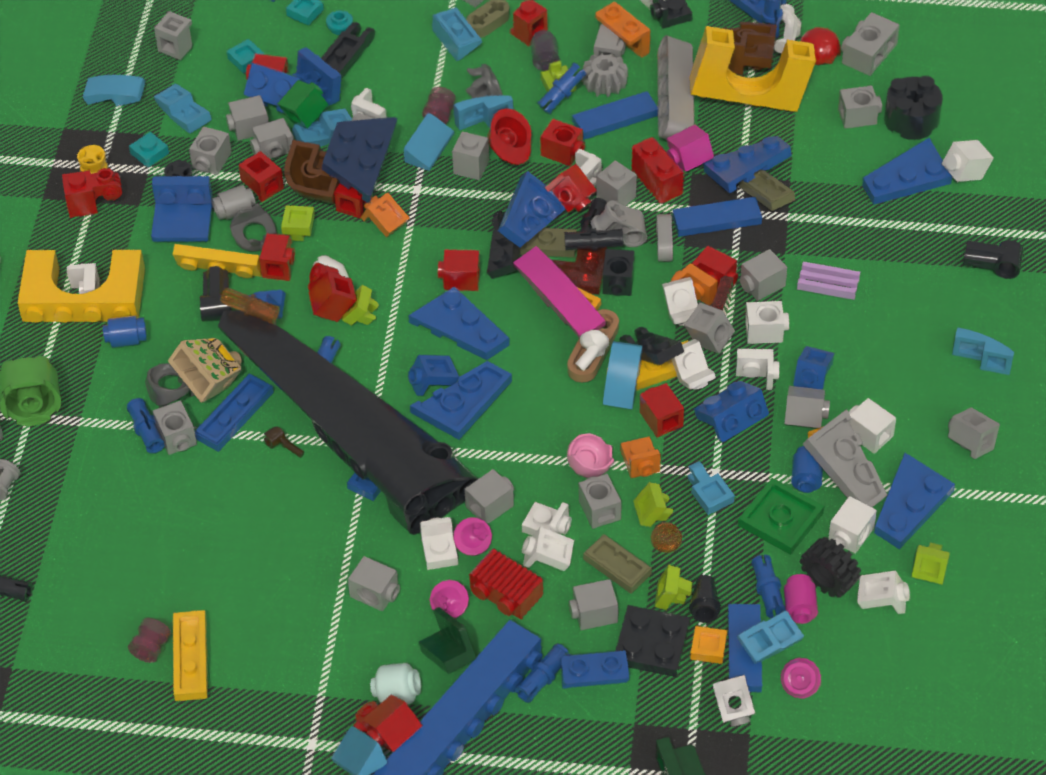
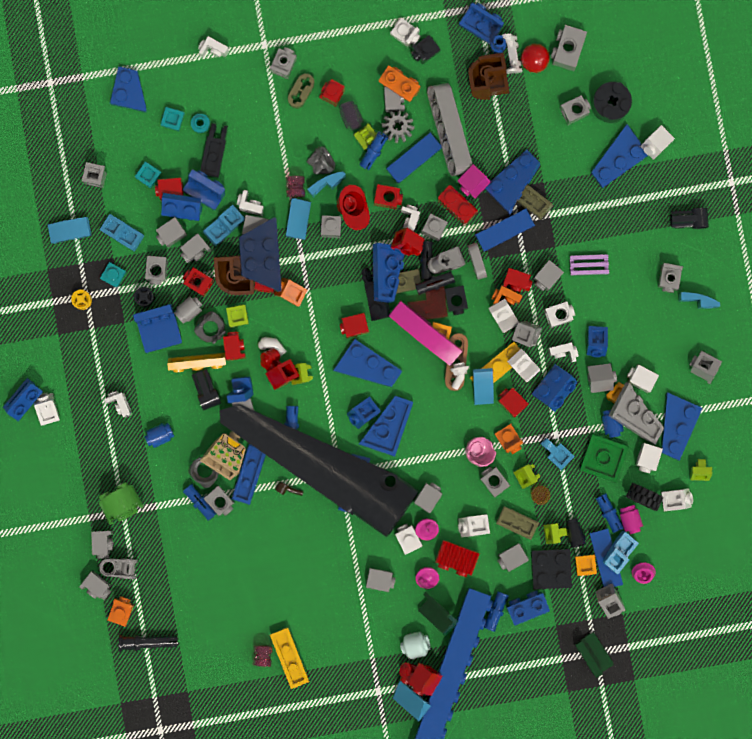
camera: 20 degrees left, 35 degrees up
(84, 188) = (88, 329): red brick -> none
(117, 297) = (144, 410): yellow arch -> none
(250, 305) = (237, 406): clear orange axle -> none
(303, 103) = (207, 218): green brick -> none
(455, 33) = (284, 113): dark azure slope -> none
(548, 518) = (467, 503): white bracket -> none
(656, 348) = (496, 360): black hinge -> none
(723, 294) = (528, 307): clear red tile -> none
(777, 89) = (479, 118): yellow arch -> none
(946, 314) = (664, 283): none -> light grey brick

